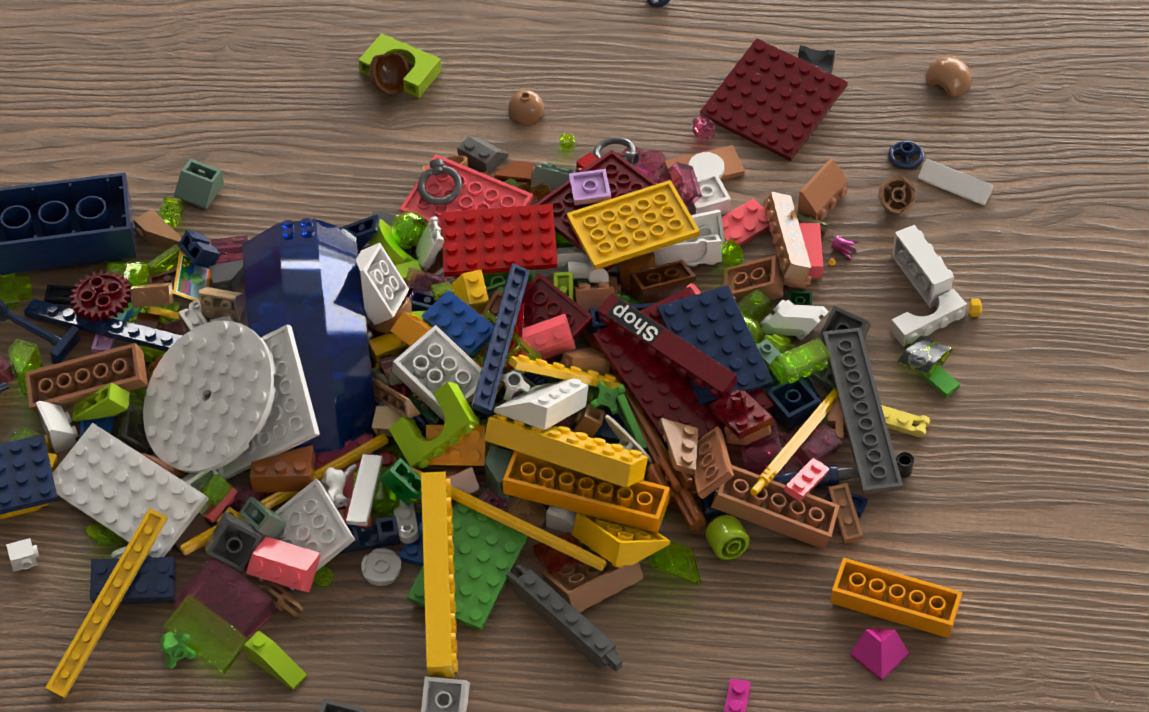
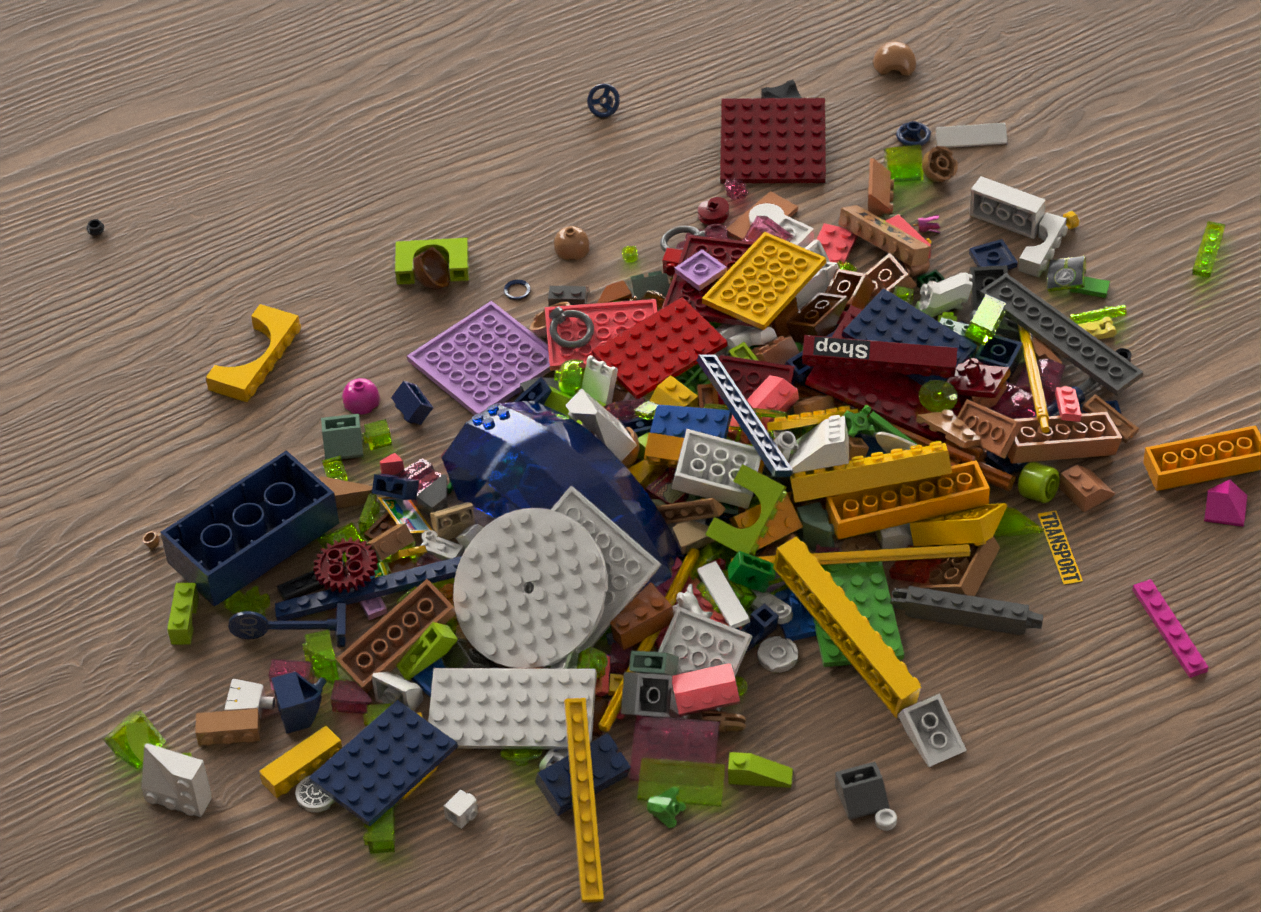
camera: 30 degrees left, 5 degrees down
(17, 409) = (349, 698): none -> clear pink slope
(168, 94) = (243, 380): none -> yellow arch
(217, 228) = (391, 465): none -> coral slope
(229, 196) = (377, 434): none -> clear neon green brick
(246, 156) = (360, 396): none -> dark pink cylinder
(276, 182) = (411, 403): none -> dark blue brick
(365, 172) = (483, 358): none -> lavender plate
(384, 449) = (705, 558): none -> clear neon green piece
(446, 118) = (522, 282): none -> dark blue piece
(667, 139) = (713, 211): none -> dark red piece
(695, 402) = (938, 390): none -> clear neon green dish
(701, 607) = (1060, 547): none -> sticker
(715, 271) = (852, 284): none -> dark orange slope
(769, 564) = (1084, 487): none -> nougat slope
(868, 177) = (904, 163): none -> clear neon green slope
(874, 306) = (993, 254): none -> dark blue plate
(918, 409) = (1096, 315): none -> clear neon green pin
(1078, 401) = (1208, 249): none -> clear neon green plate

